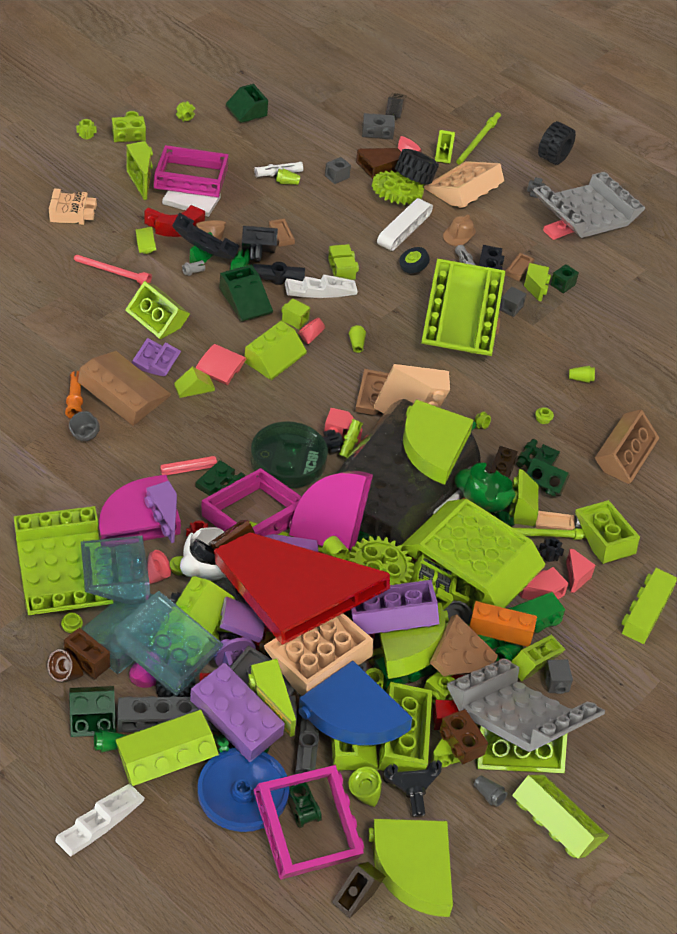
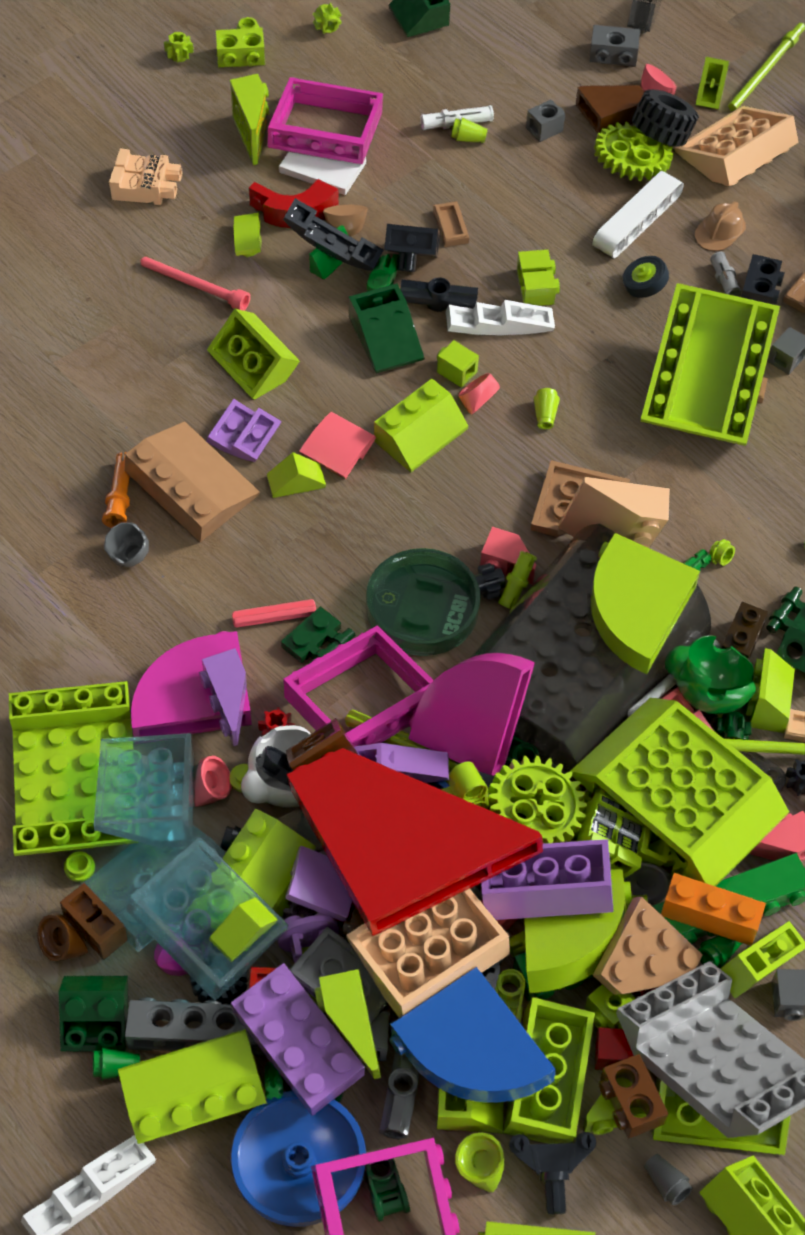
camera: 10 degrees right, 10 degrees up
(190, 268) = (312, 282): light grey pin -> none
(193, 644) = (242, 928): none -> lime slope

